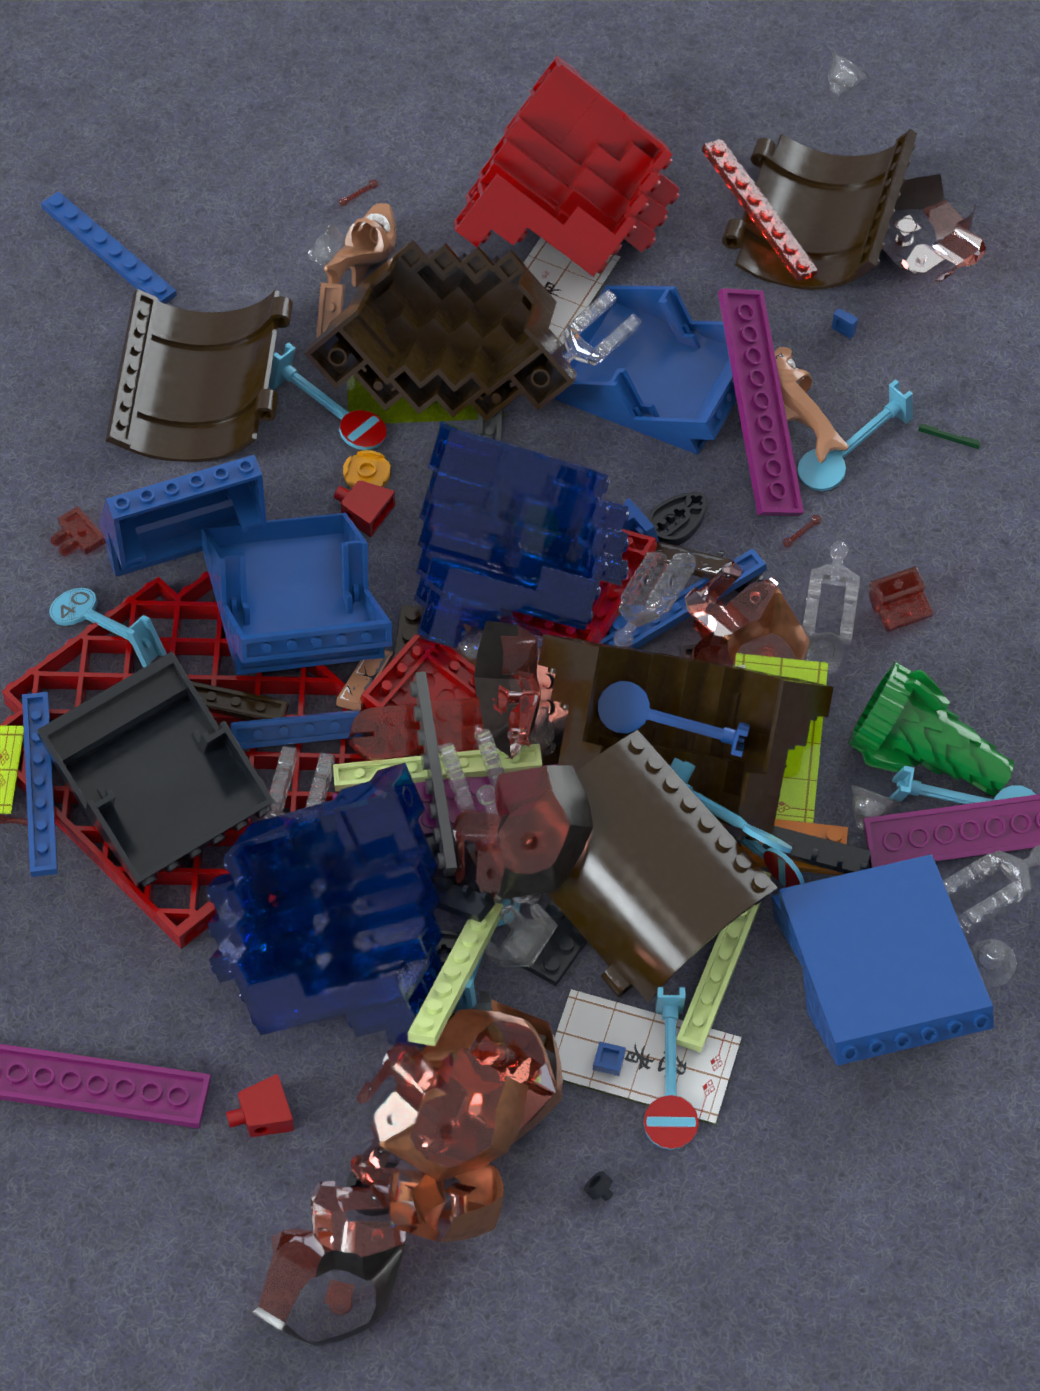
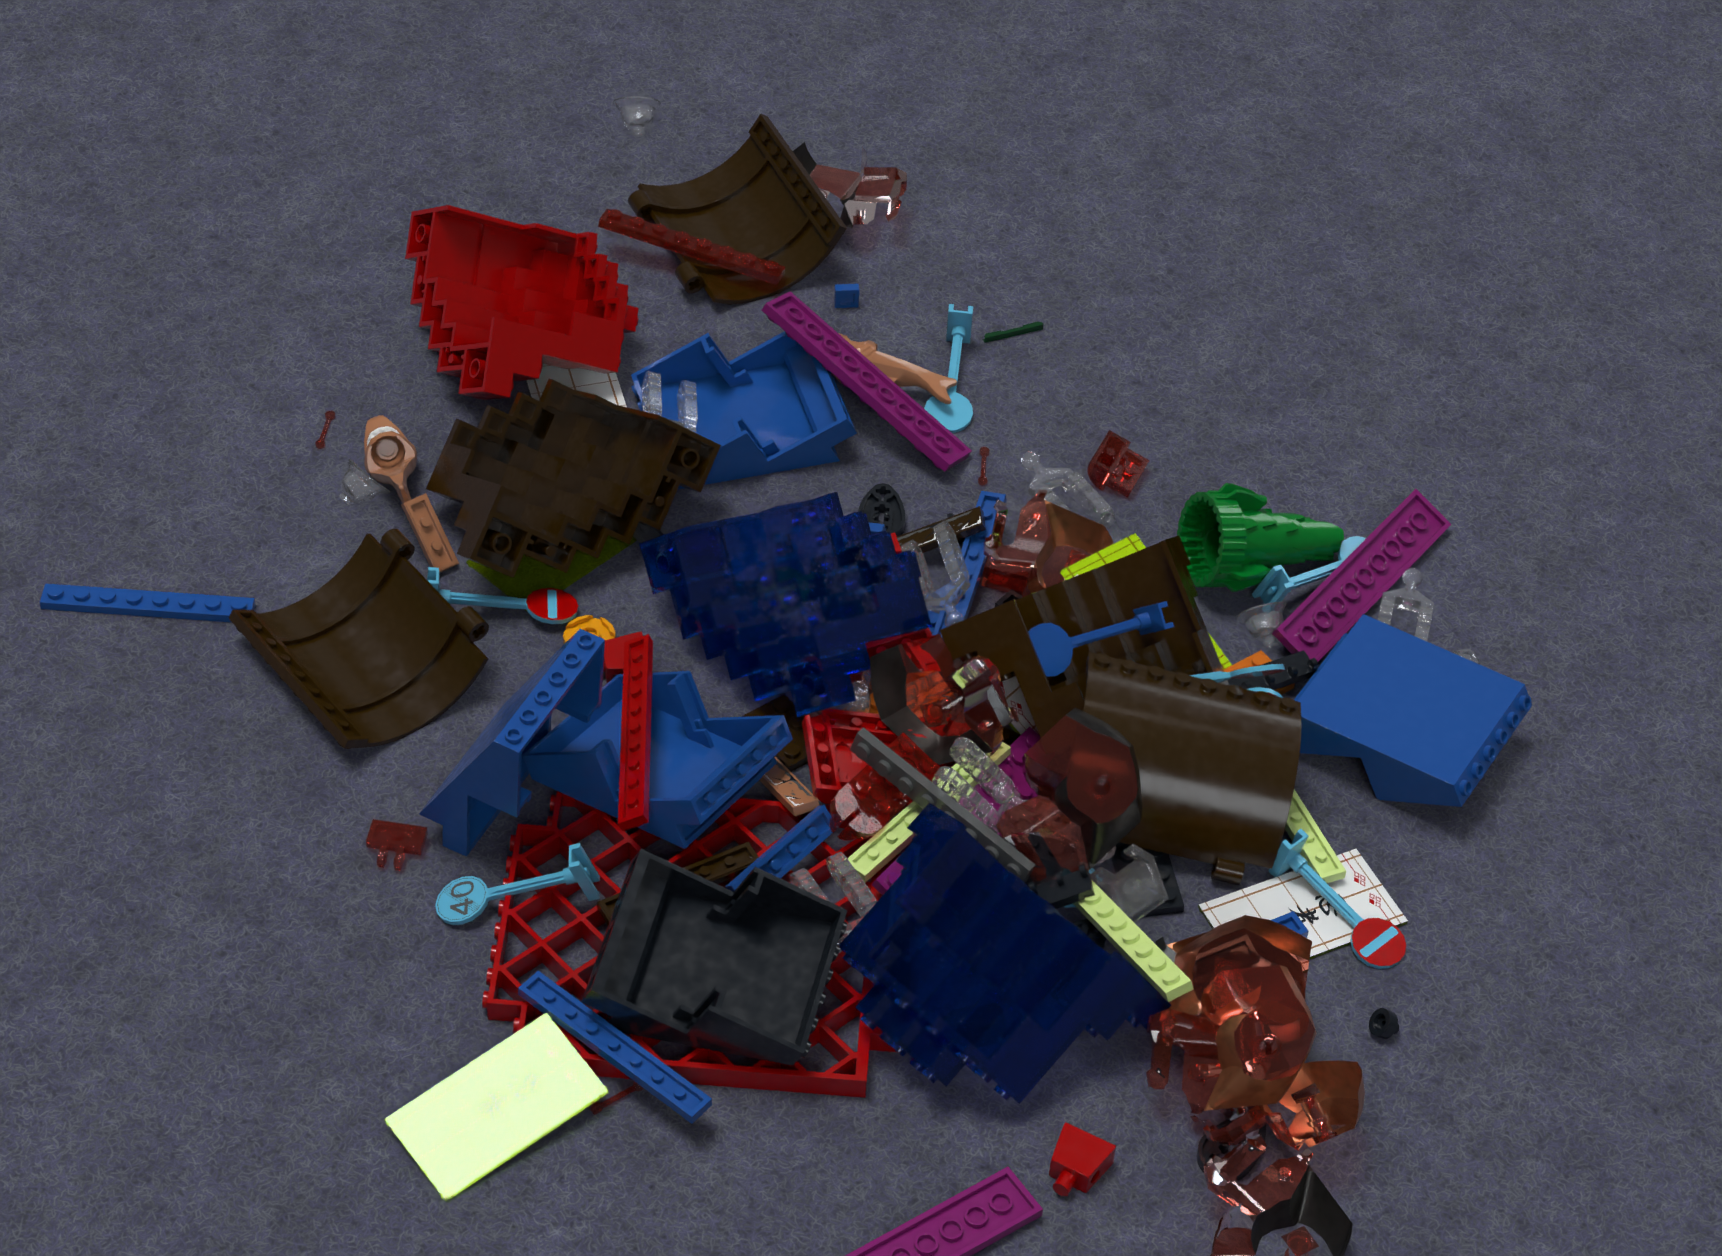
camera: 45 degrees left, 10 degrees down
(282, 563) = (635, 733): none -> red plate

